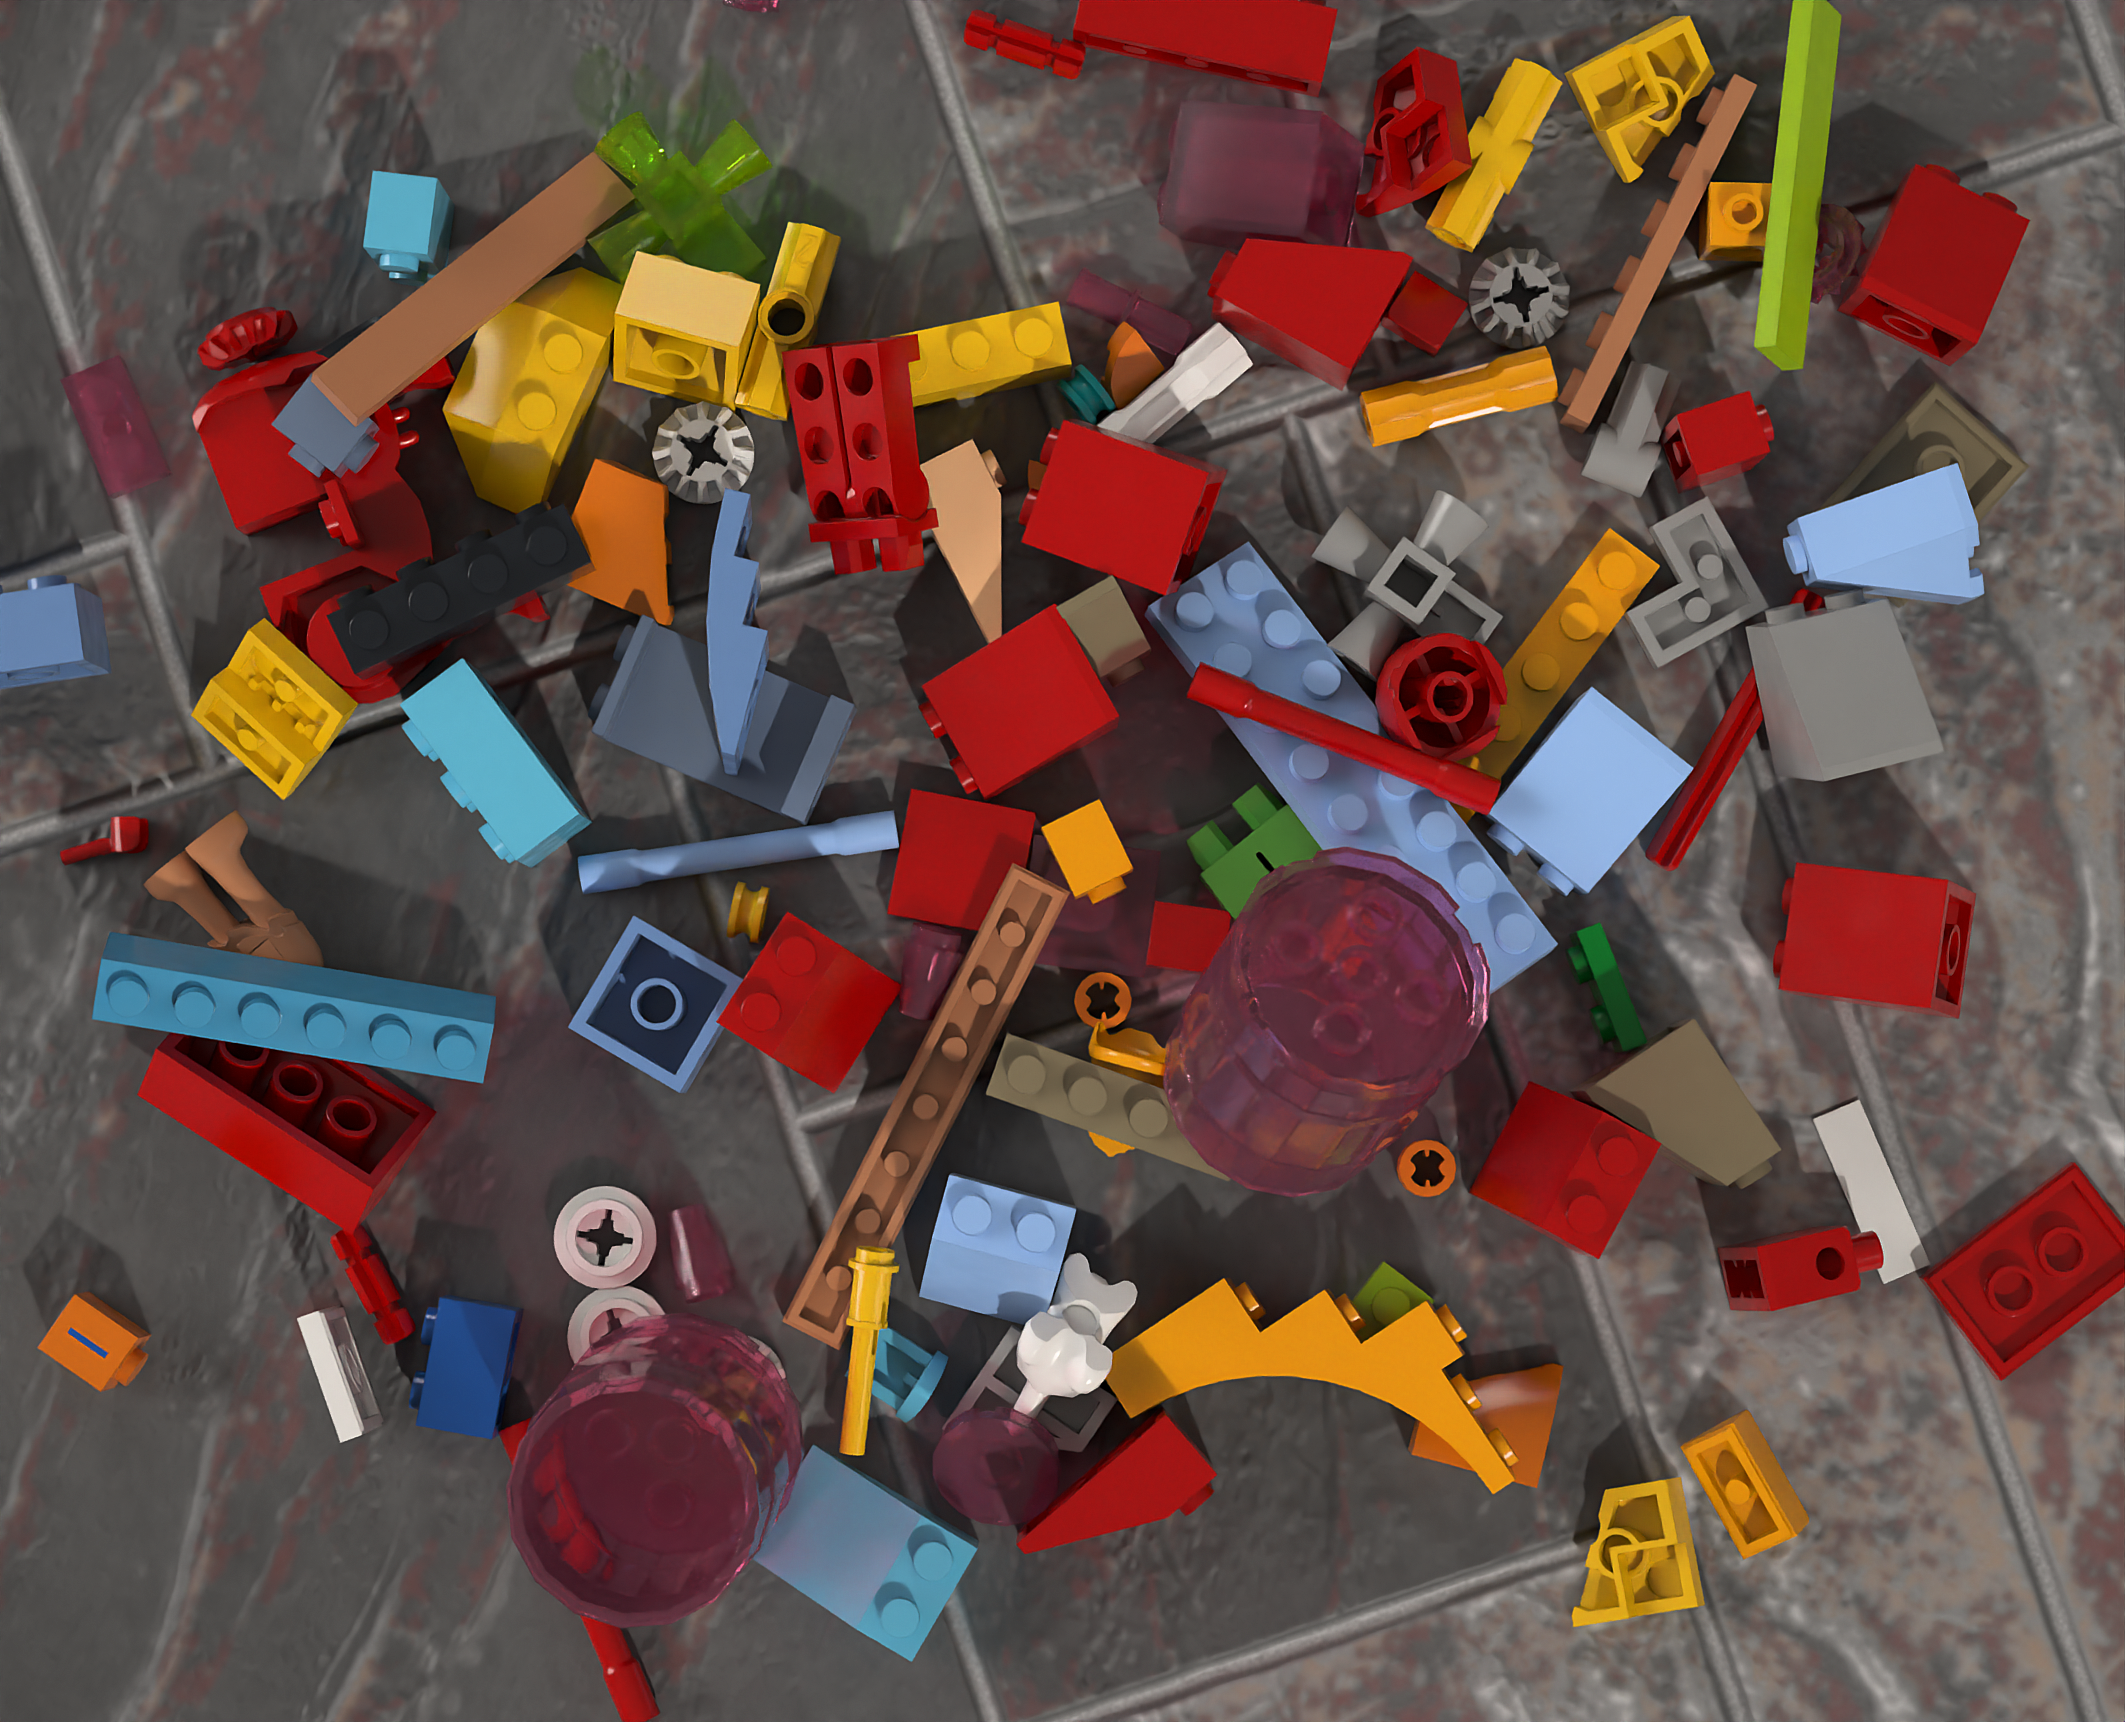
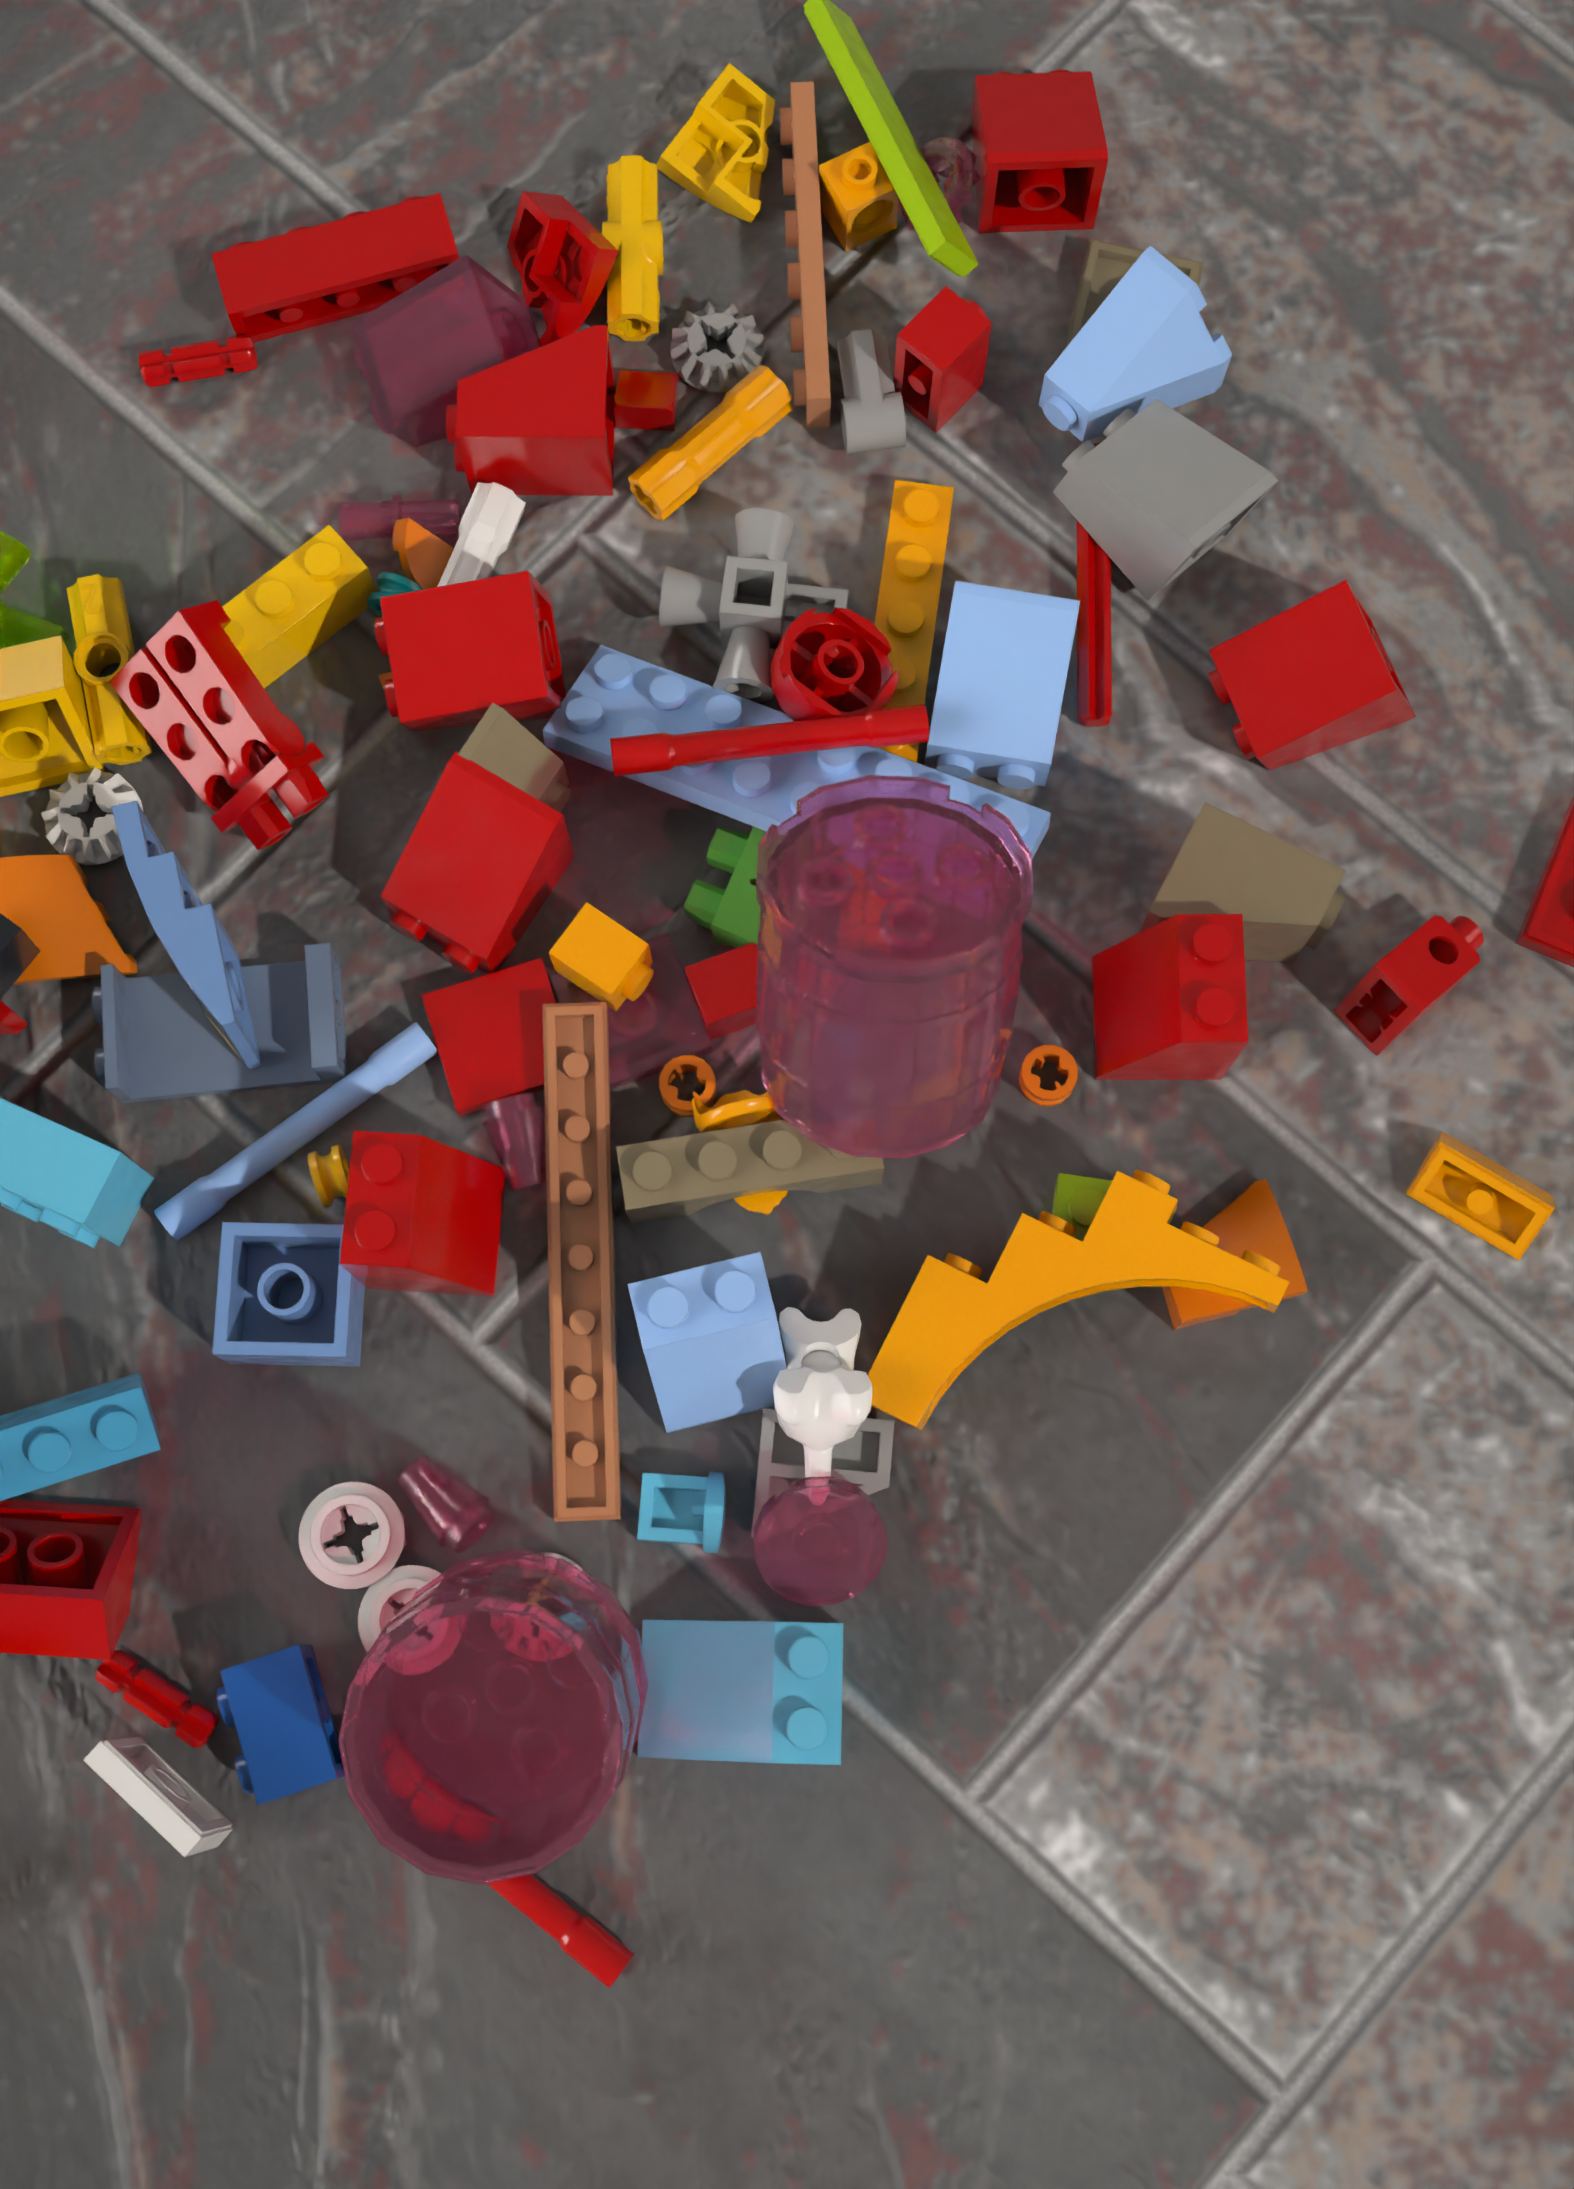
camera: 25 degrees left, 10 degrees down
(867, 1315) = (627, 1468): yellow pin -> none
(970, 527) = (354, 751): light nougat slope -> none
(1131, 1486) = (959, 1472): red slope -> none
(1614, 1015) = (1095, 827): green plate -> none
(1641, 1555) = (1430, 1306): yellow slope -> none
(1711, 591) = (1006, 486): light grey plate -> none
(1871, 1188) = (1428, 889): white sticker -> none

